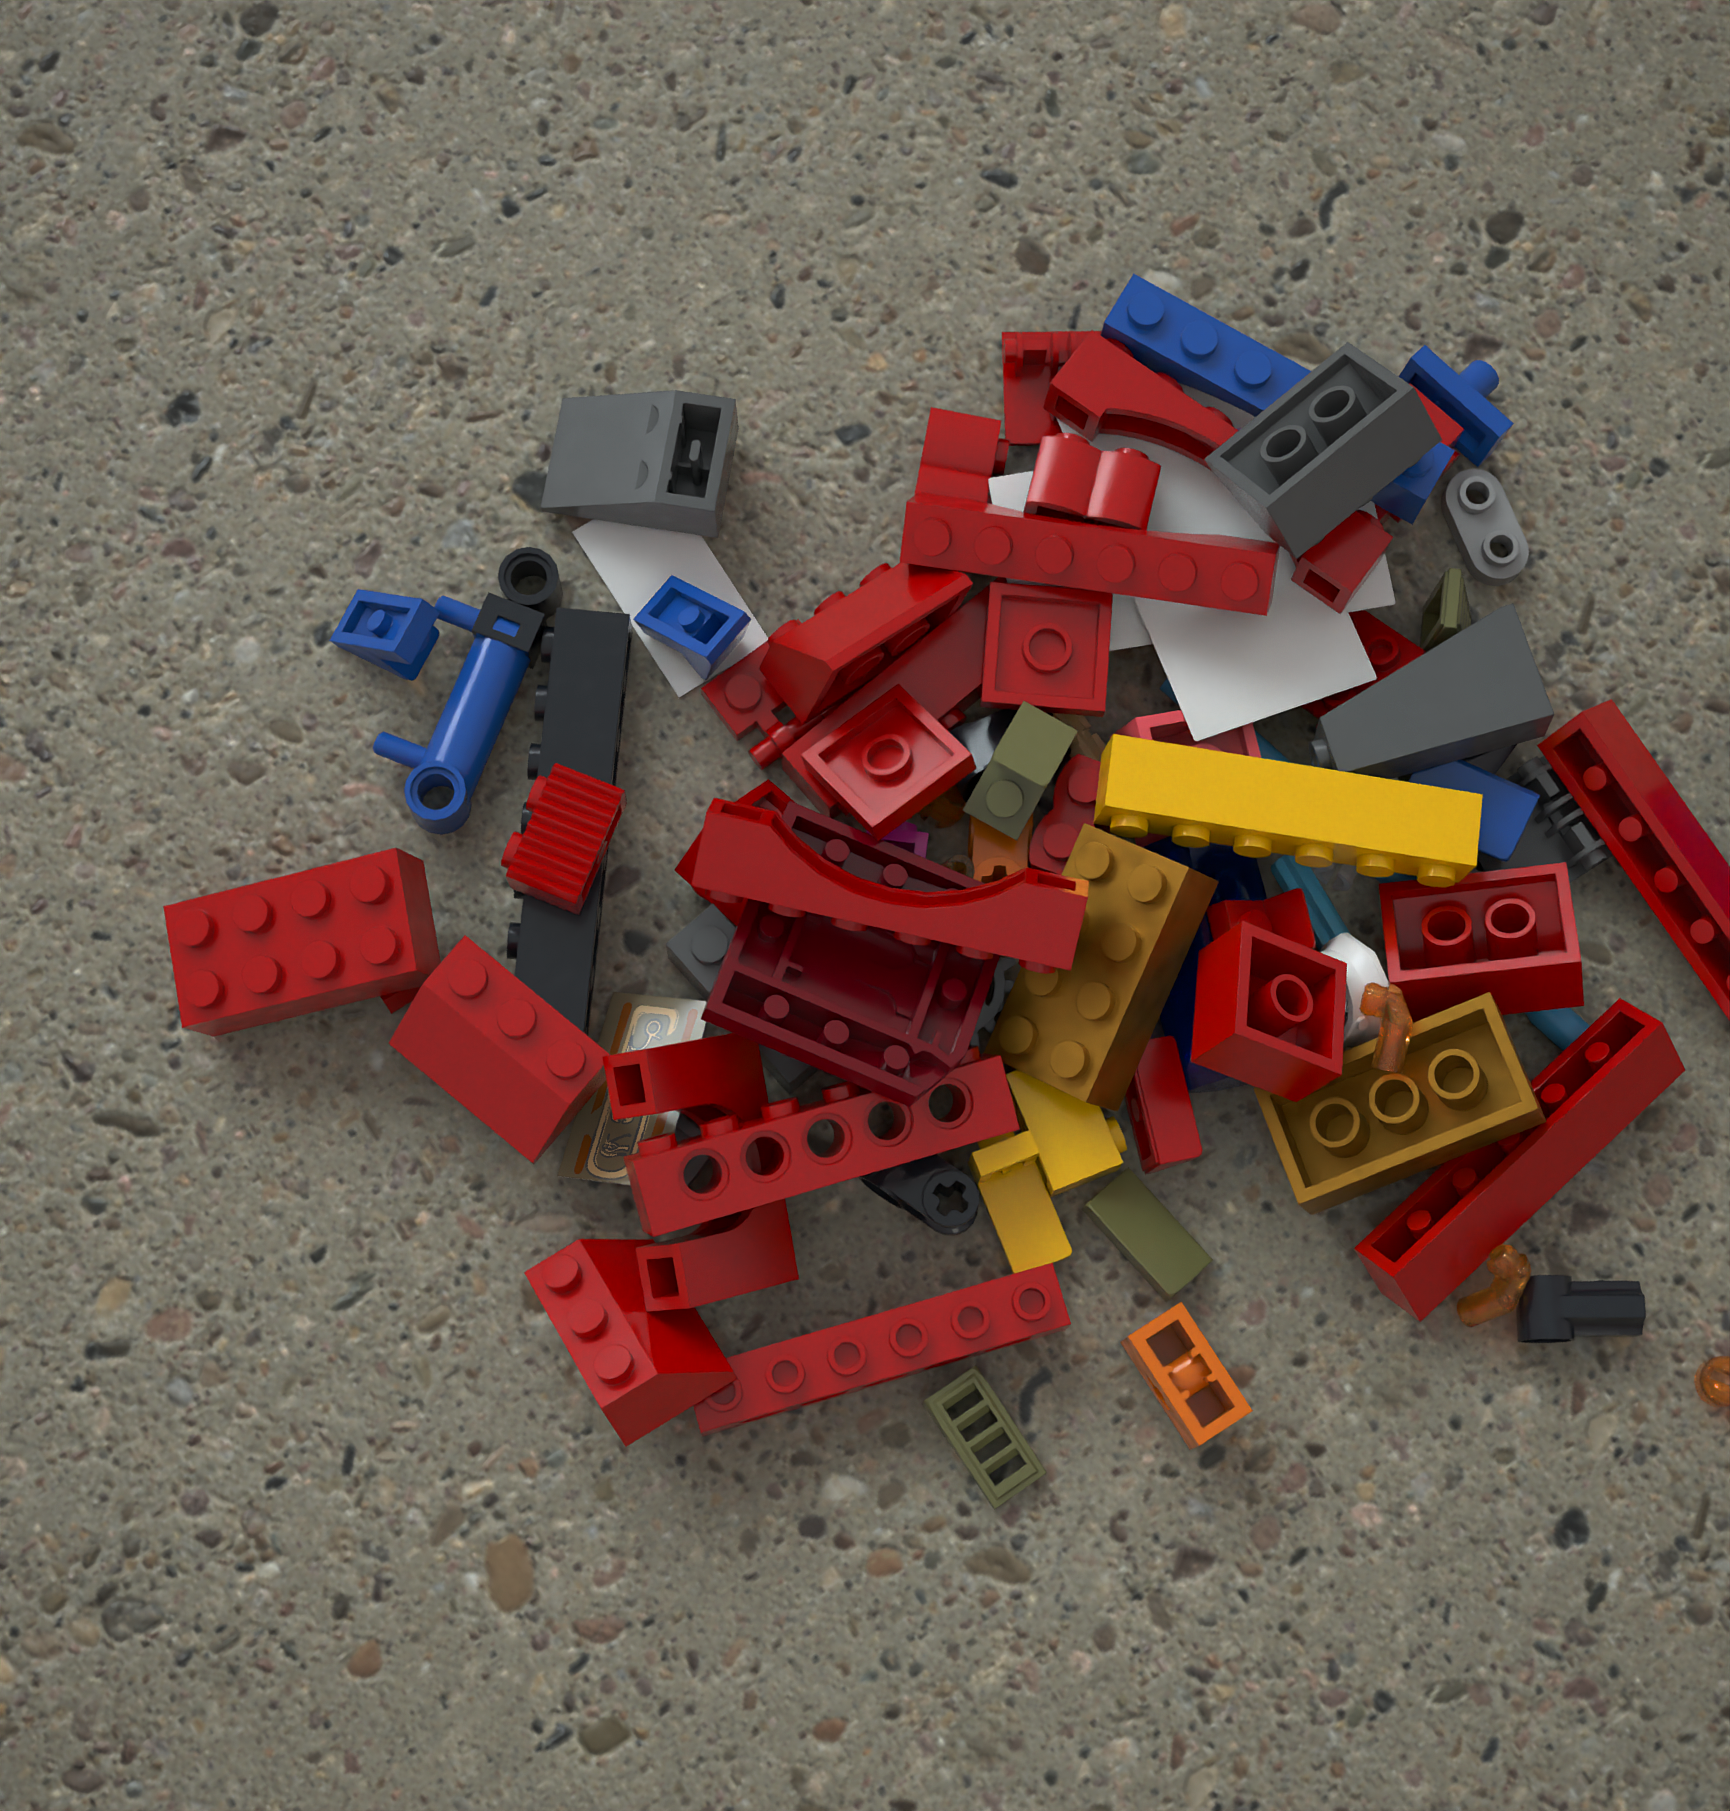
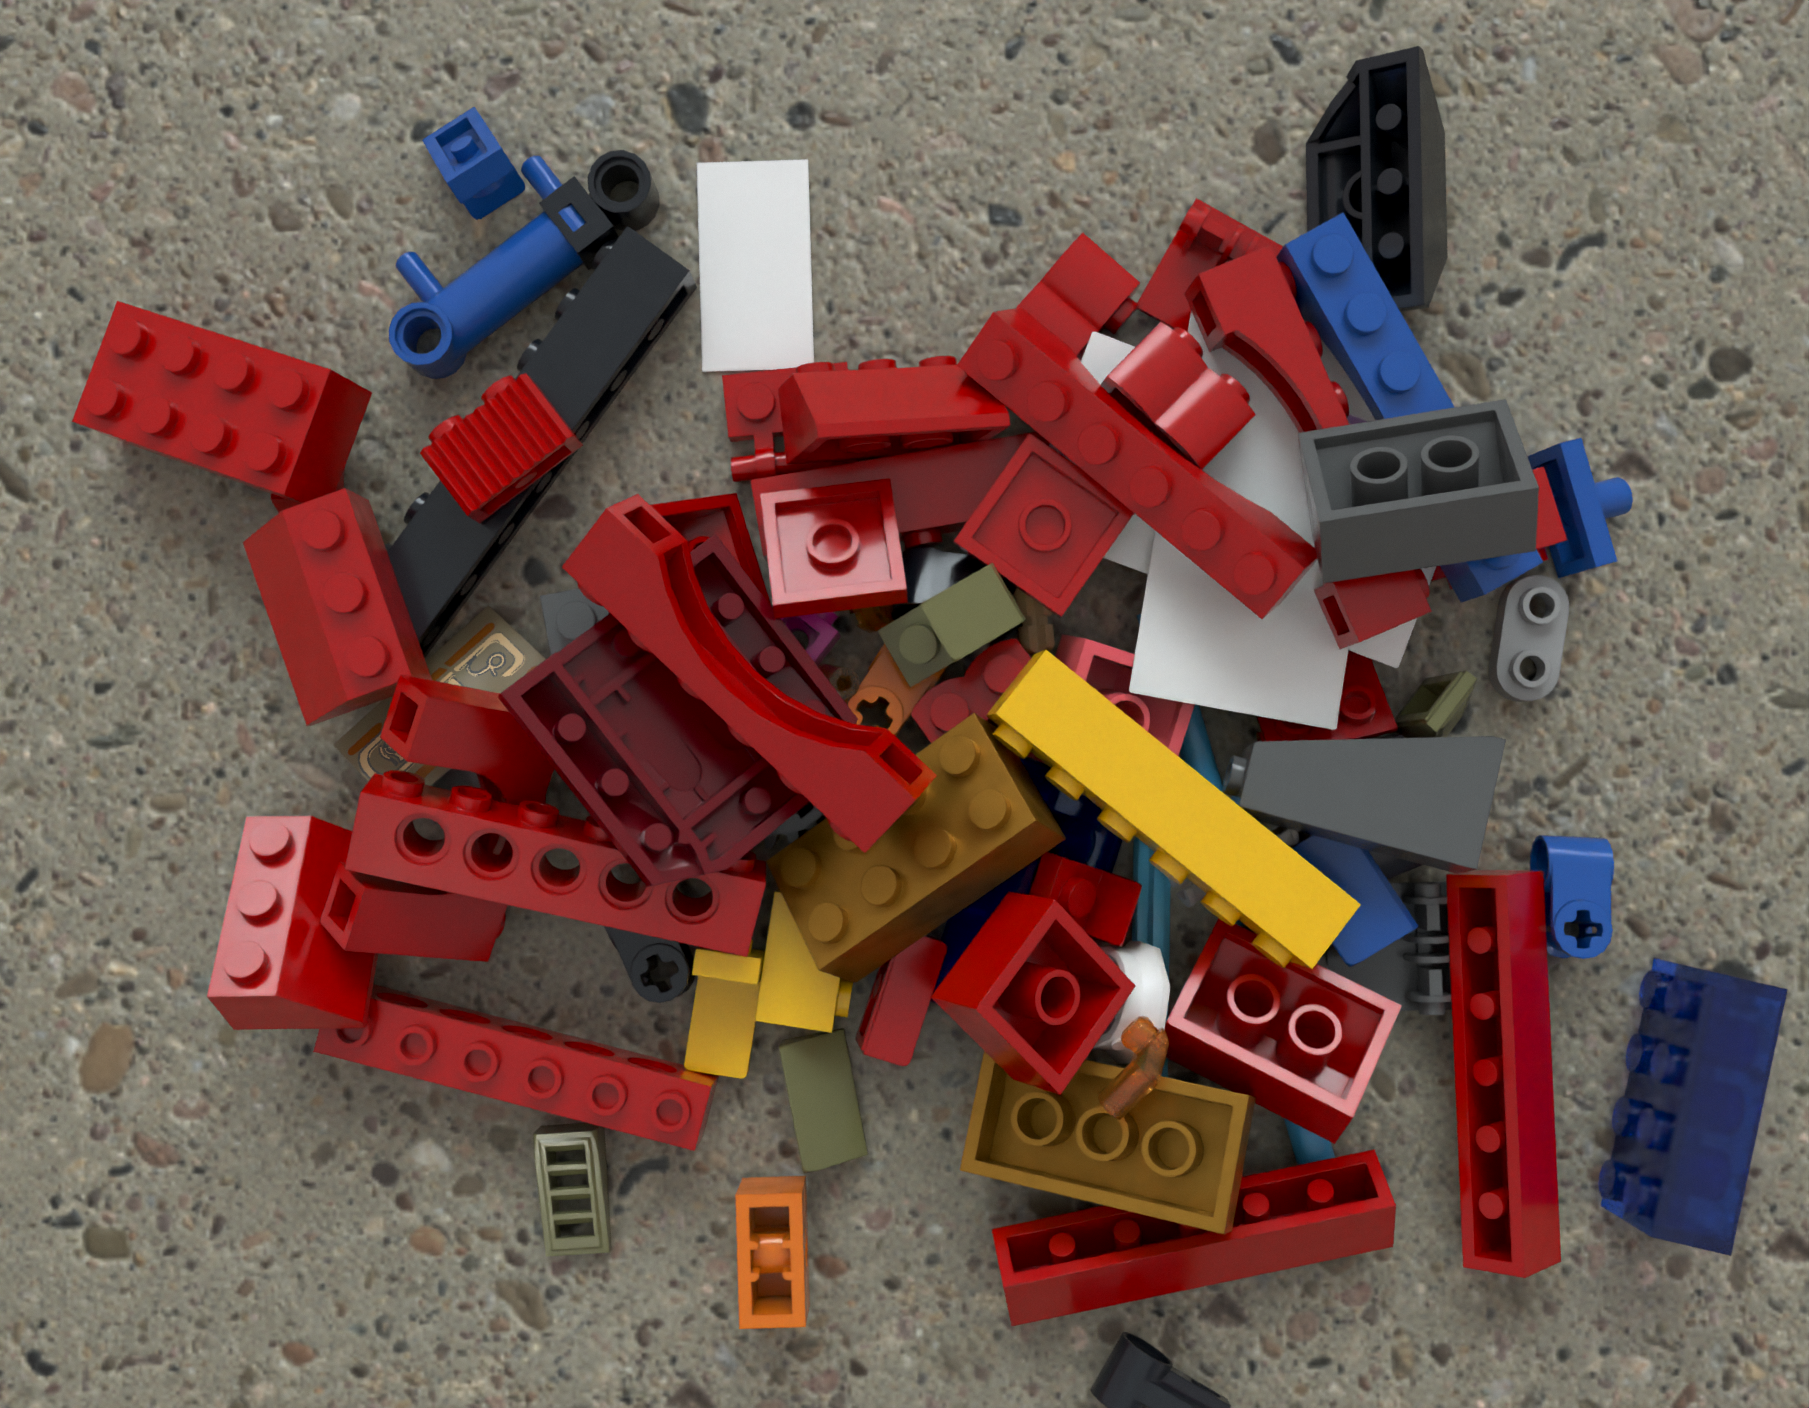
camera: 40 degrees right, 10 degrees up
(644, 460) = (794, 133): dark grey slope -> none
(693, 624) = (745, 313): blue slope -> none
(1133, 219) = (1385, 168): none -> black wedge
(1504, 1292) = (1105, 1343): clear orange arm -> none
(1649, 702) = (1576, 891): none -> blue piece

